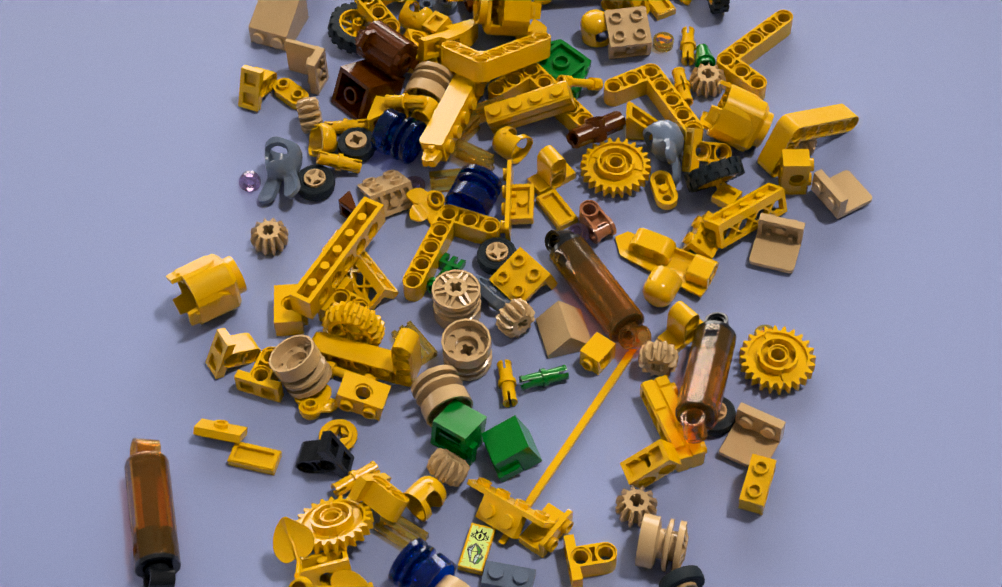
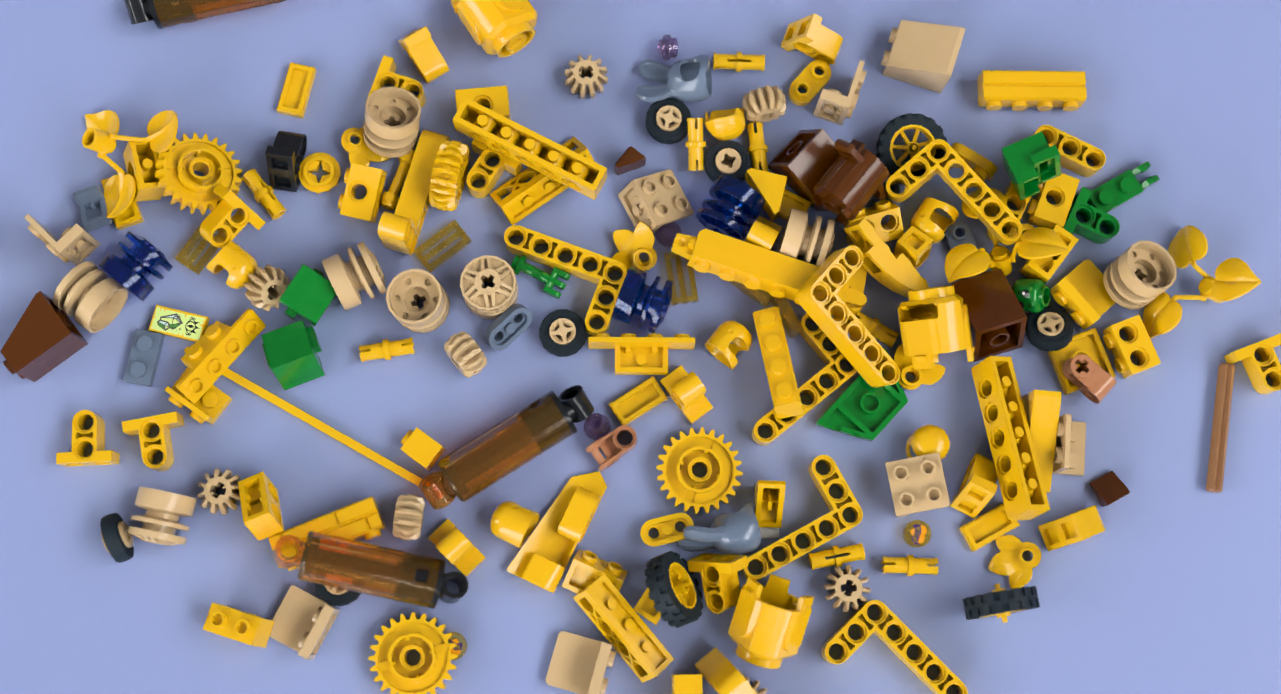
camera: 80 degrees right, 25 degrees up
(220, 430) = (325, 50): yellow plate -> none
(269, 126) = (739, 61): none -> yellow pin
(405, 101) = (766, 208): yellow axle -> none
(473, 155) = (711, 302): clear yellow tile -> none
(521, 276) = (528, 363): yellow bracket -> none
(543, 377) = (392, 389): green pin -> none
(562, 329) = (458, 413): tan slope -> none
(590, 83) = (820, 406): yellow bar -> none
(596, 129) = (746, 444): reddish brown piece -> none
(704, 56) = (887, 585): green cone -> none

